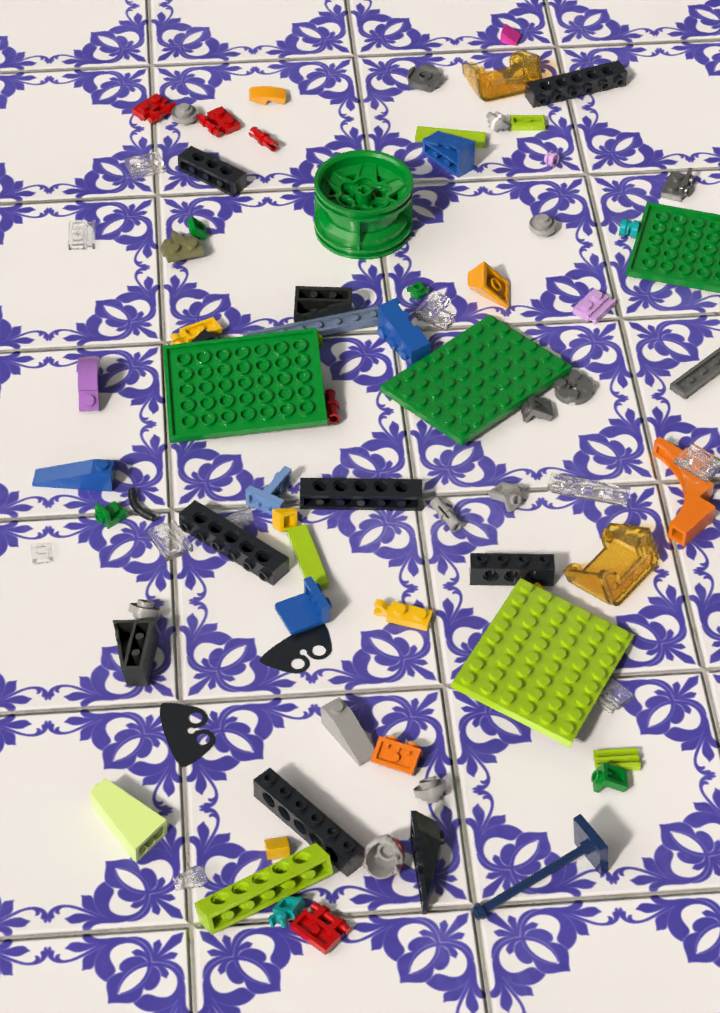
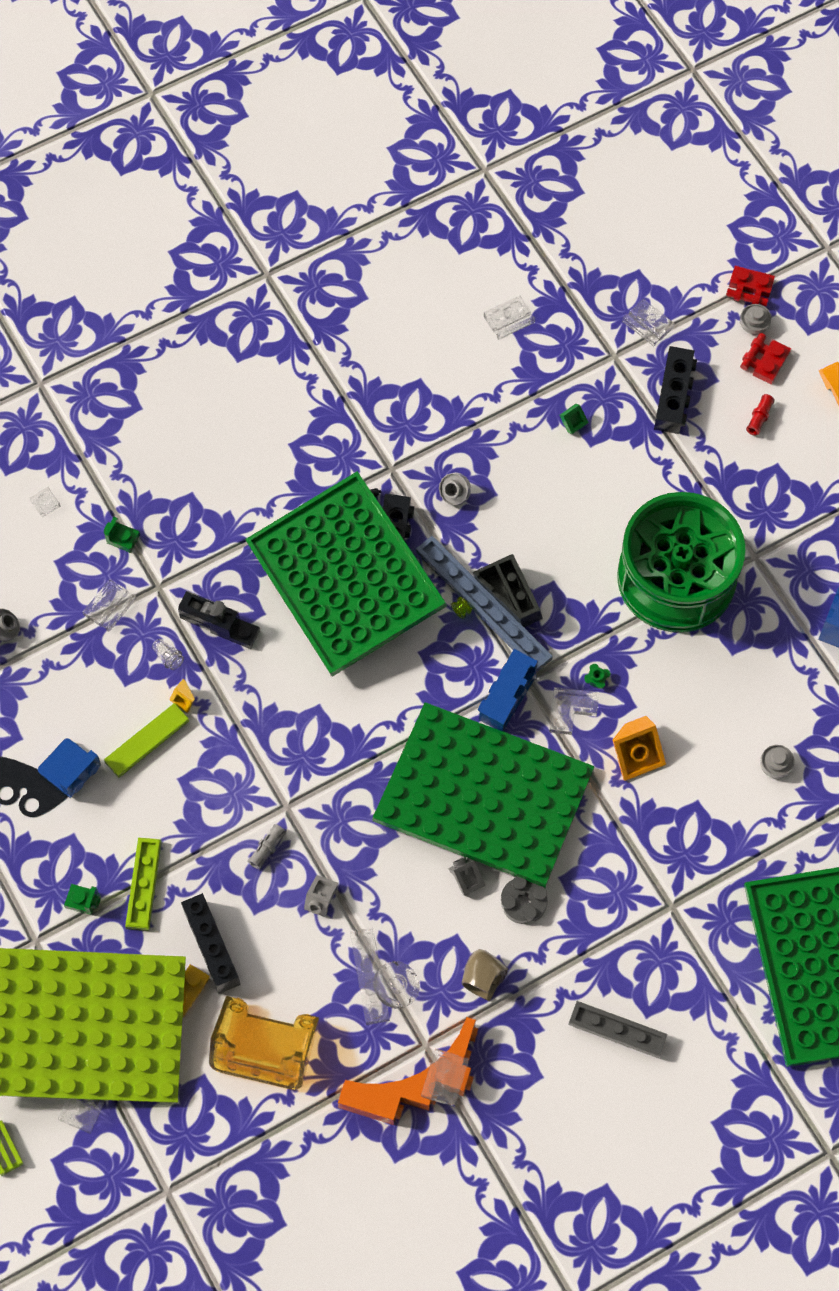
camera: 65 degrees right, 20 degrees up
(82, 475) = (165, 486): blue wedge -> none
(88, 383) = (284, 424): medium lavender arch -> none
(137, 508) = (136, 572): black piece -> none
(180, 247) = (536, 416): olive plate -> none
(189, 332) = (421, 496): yellow plate -> none
(211, 306) = (455, 488): none -> light grey plate
(232, 474) = (218, 618): none -> black plate
(234, 542) = (118, 716): black brick -> none
(270, 496) = (215, 668): medium blue bracket -> none
(332, 406) = (370, 668): red pin -> none
(361, 494) = (271, 804): black brick -> none
(404, 614) = (109, 865): yellow plate -> none
(426, 639) = (82, 899): none -> green bracket
(433, 599) = (143, 884): none -> lime tile
(594, 306) = (672, 871): lavender plate -> none
(605, 476) = (396, 985): none -> clear tile
(620, 423) = (483, 974): none -> dark tan piece
(625, 228) = (823, 856): teal wheel -> none

